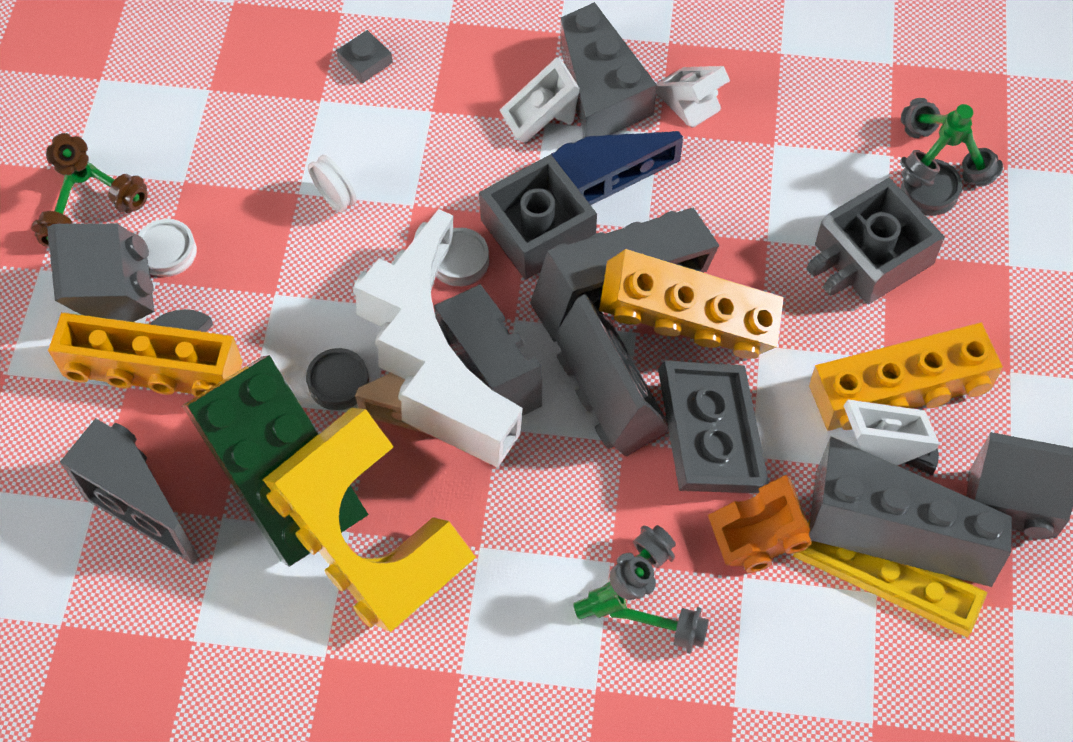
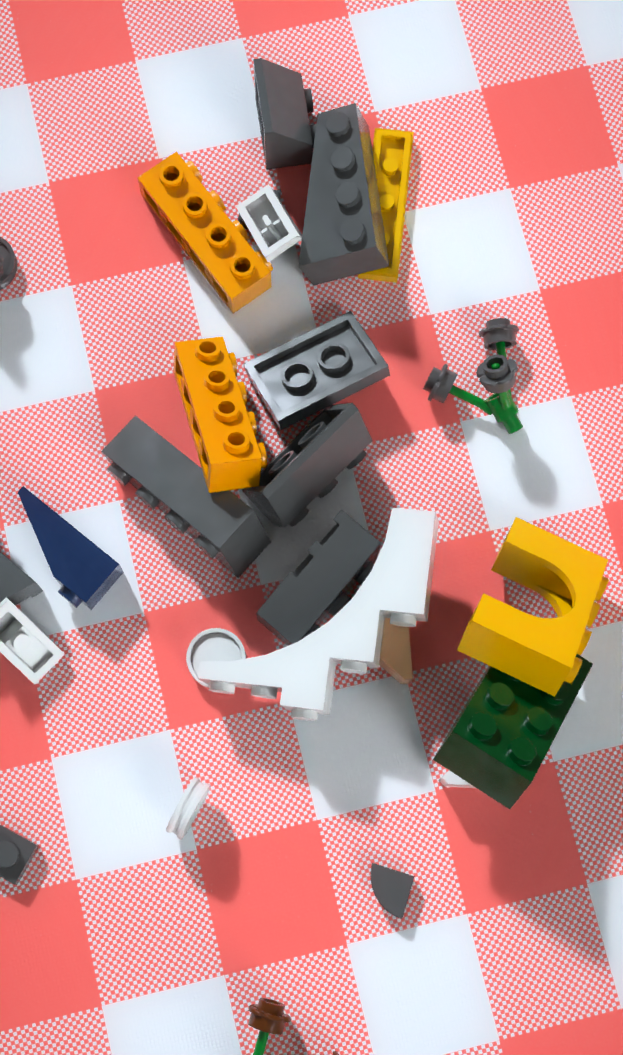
camera: 115 degrees left, 15 degrees up
(101, 271) = (380, 983): dark grey slope -> none
(118, 481) = (580, 844): dark grey slope -> none
(142, 354) = (446, 898): light orange brick -> none
(169, 247) = (310, 950): white piece -> none
(335, 378) = (386, 716): dark grey piece -> none
(535, 213) = (158, 591): dark grey brick -> none
(761, 527) = (390, 304): orange cylinder -> none
(875, 243) = (90, 305): dark grey hinge -> none

